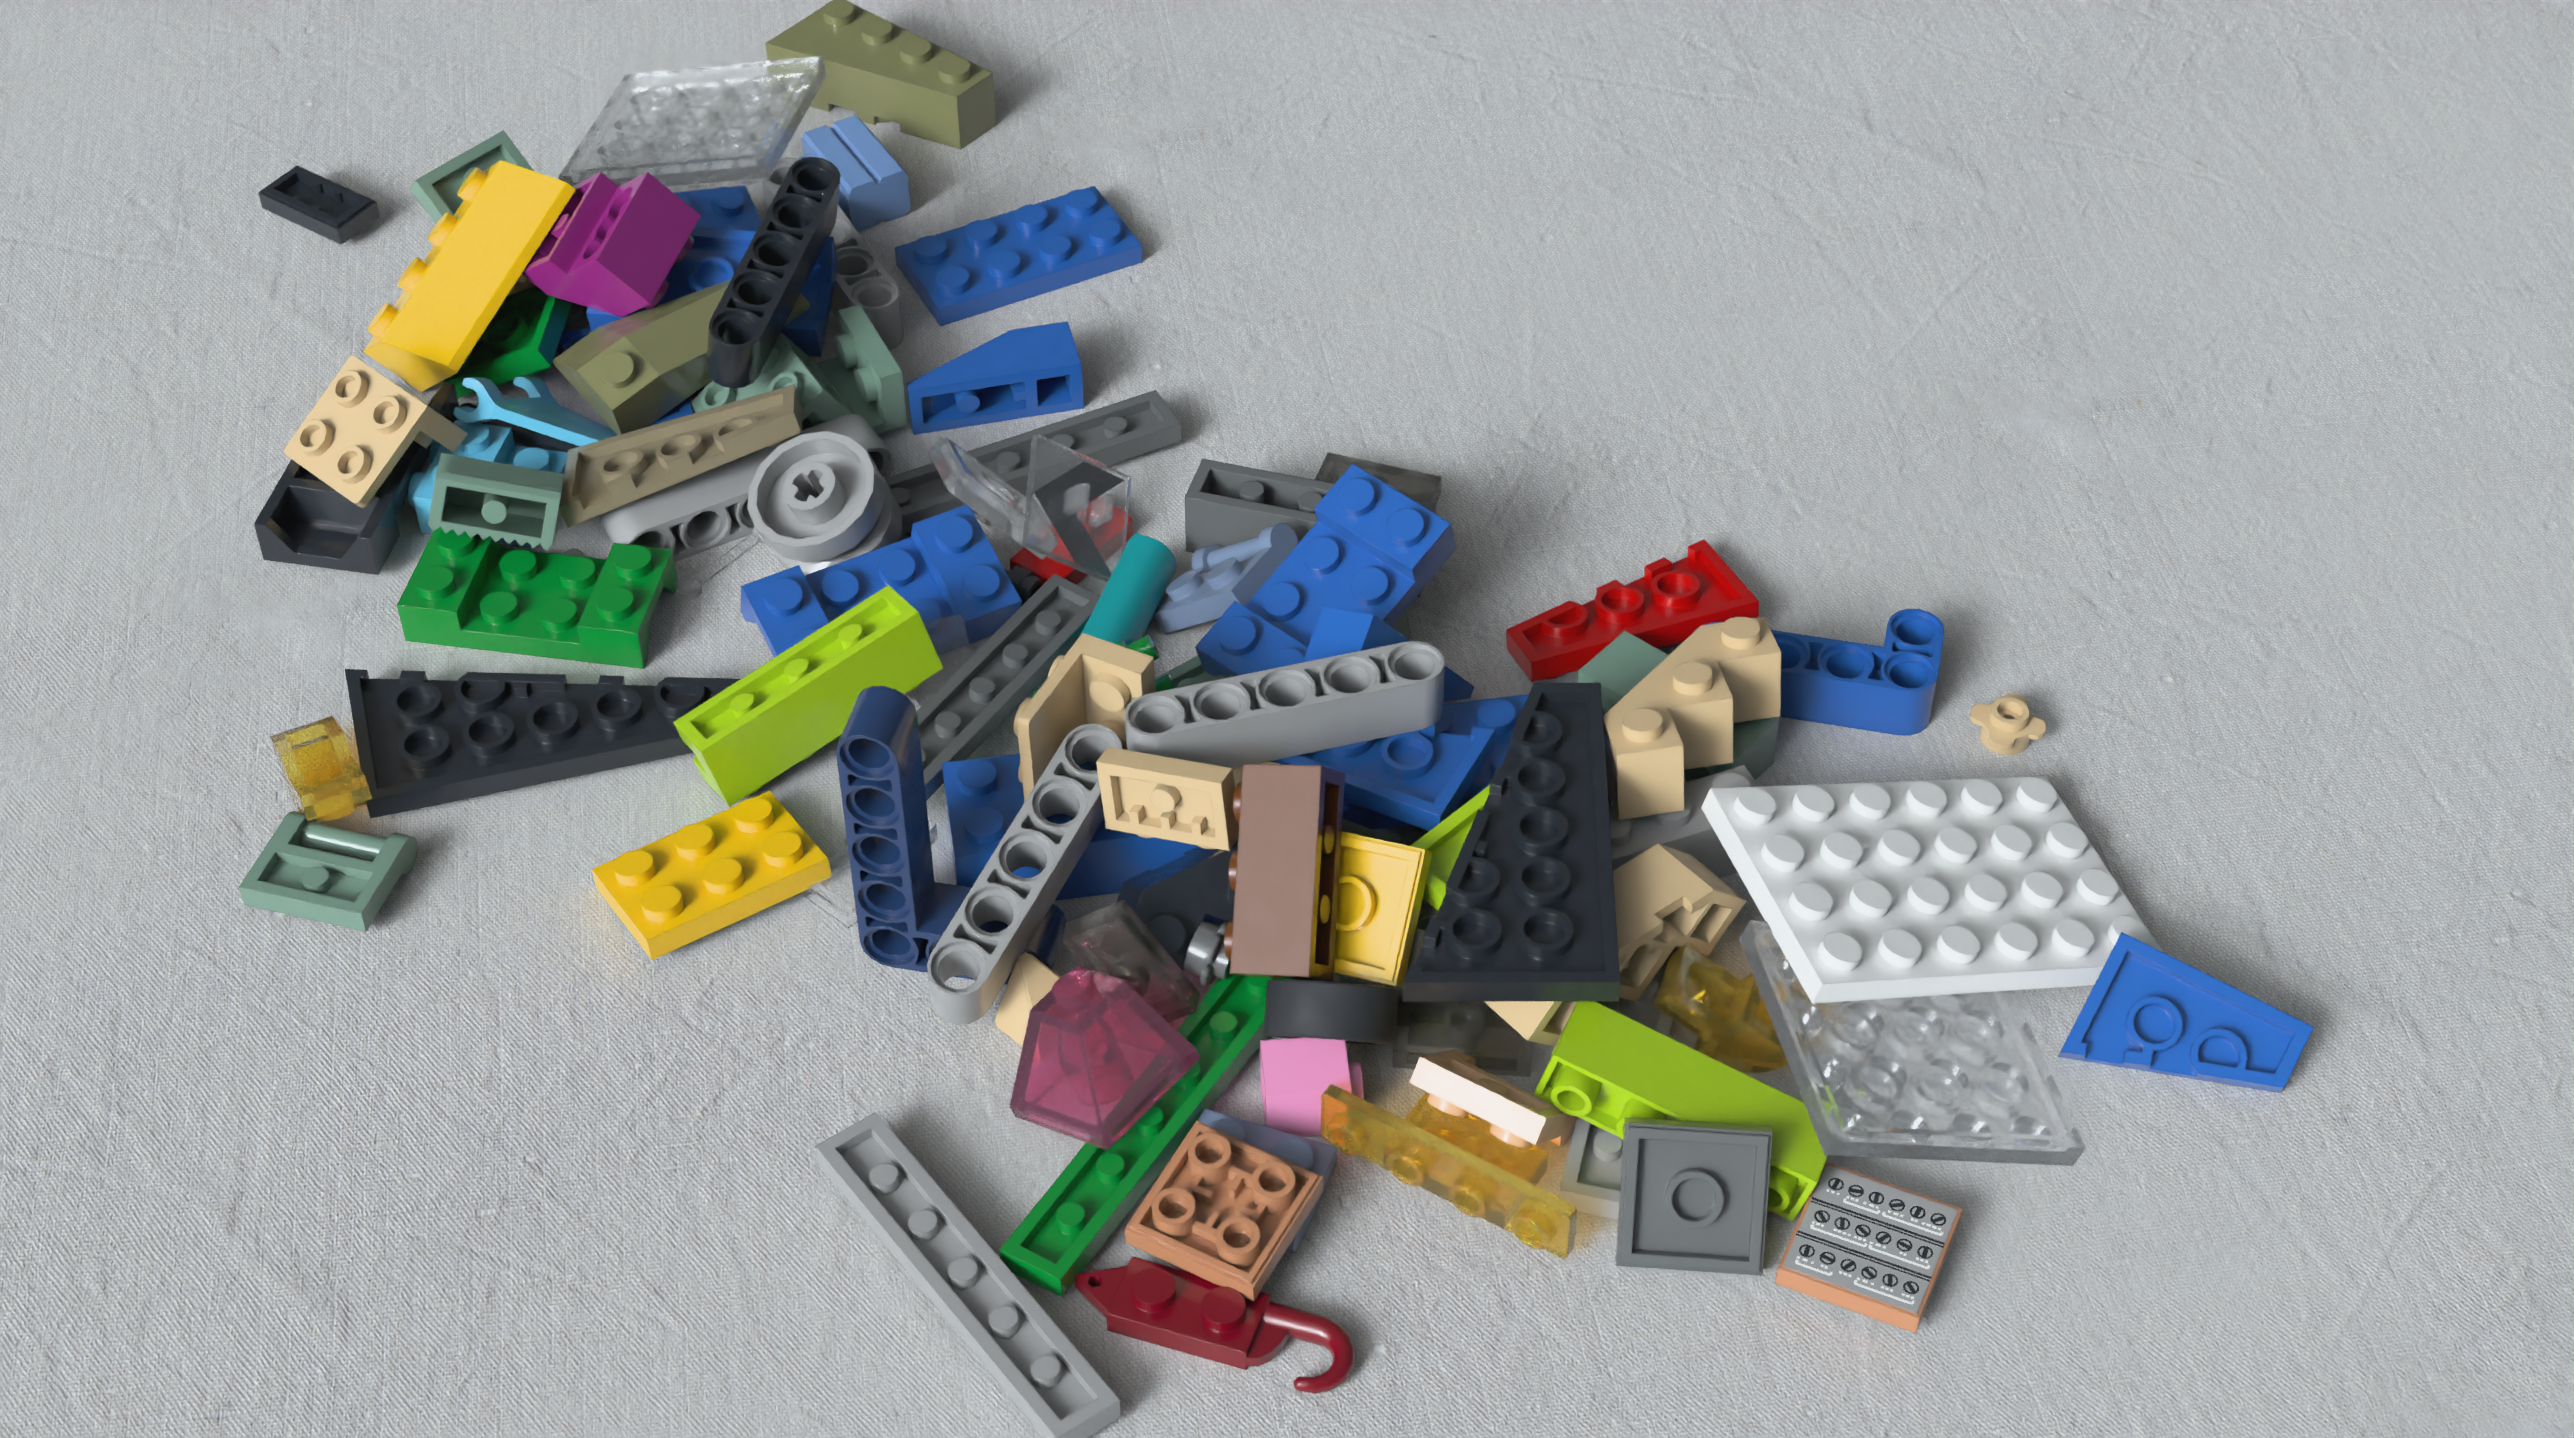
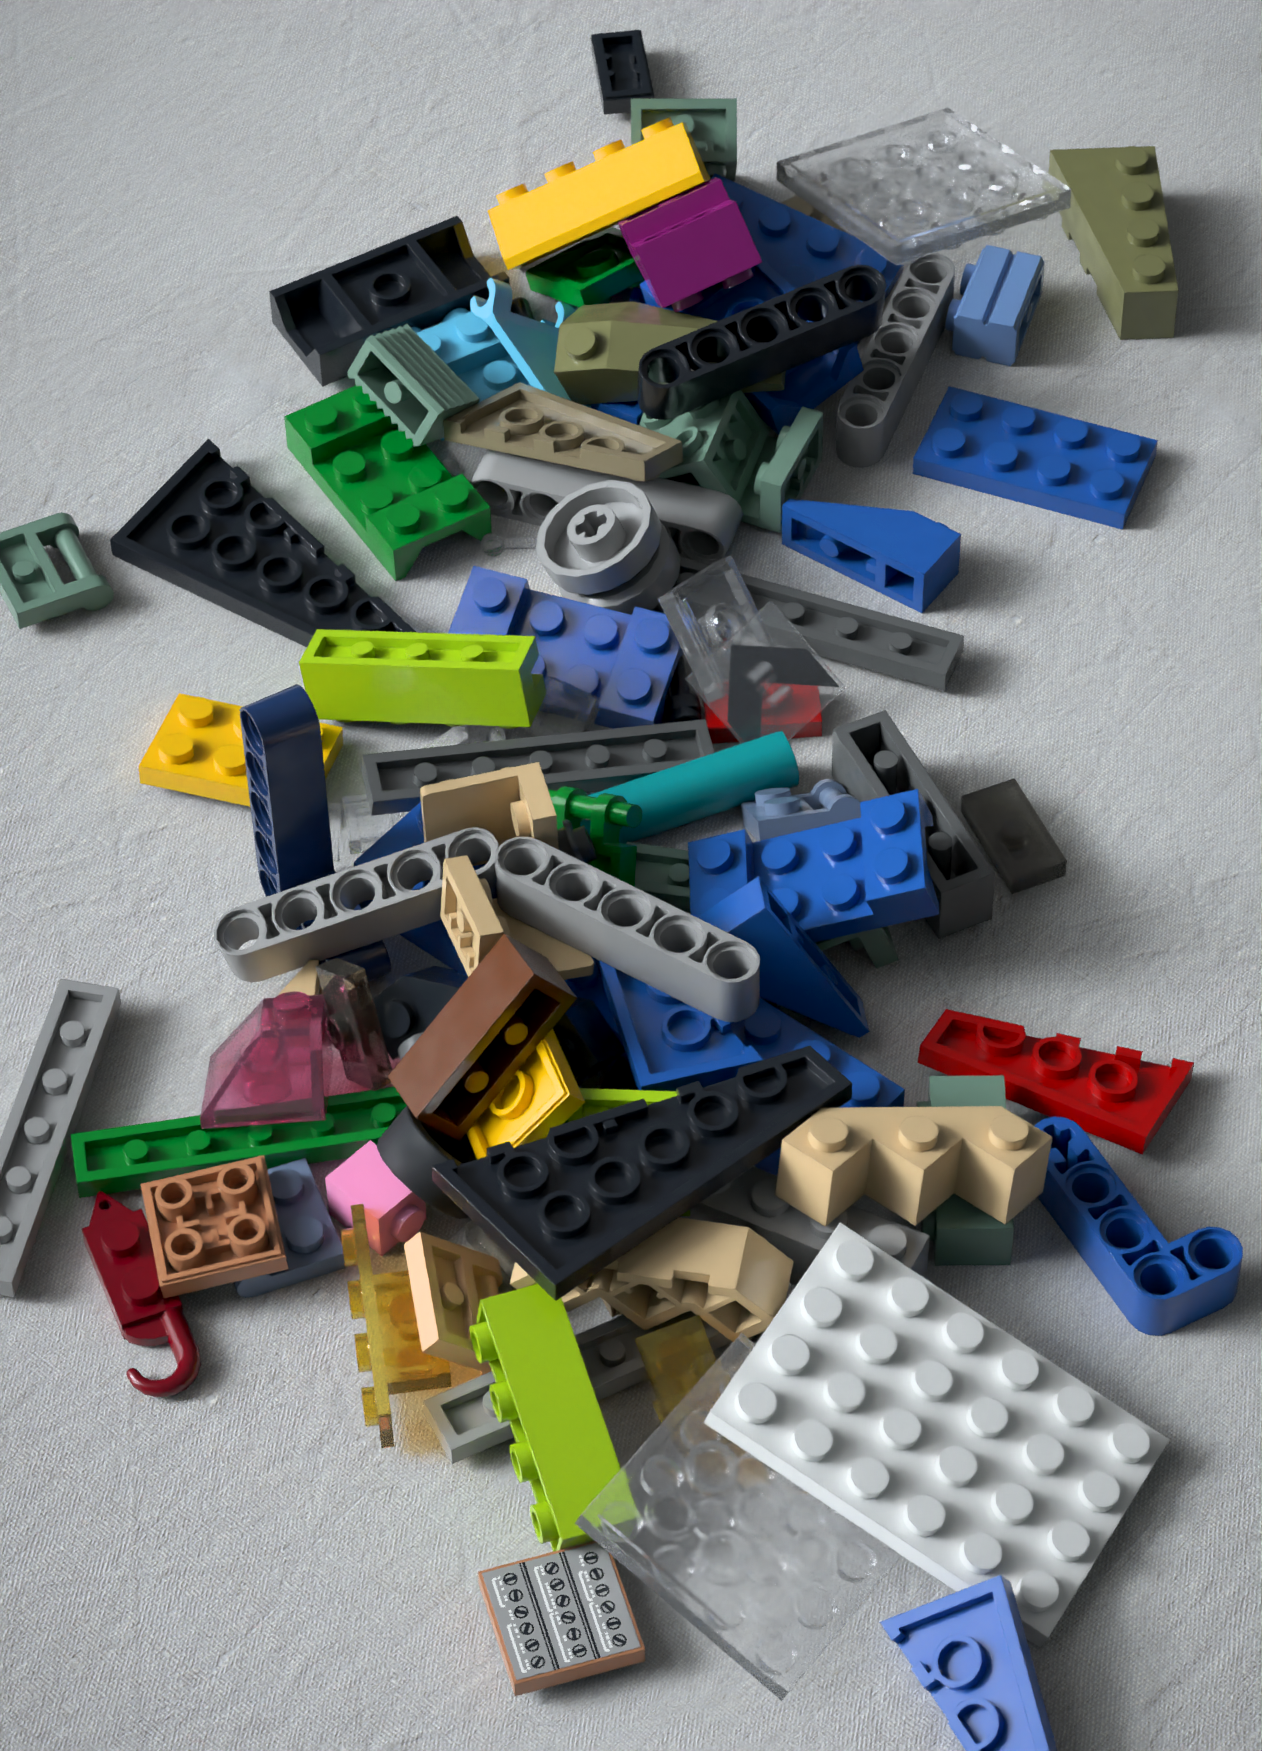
camera: 50 degrees right, 5 degrees up
(320, 770) = (108, 497): clear yellow brick -> none
(364, 430) = (401, 262): tan bracket -> none
(1693, 1196) = (482, 1477): tile -> none
(2007, 724) = (1202, 1395): tan plate -> none

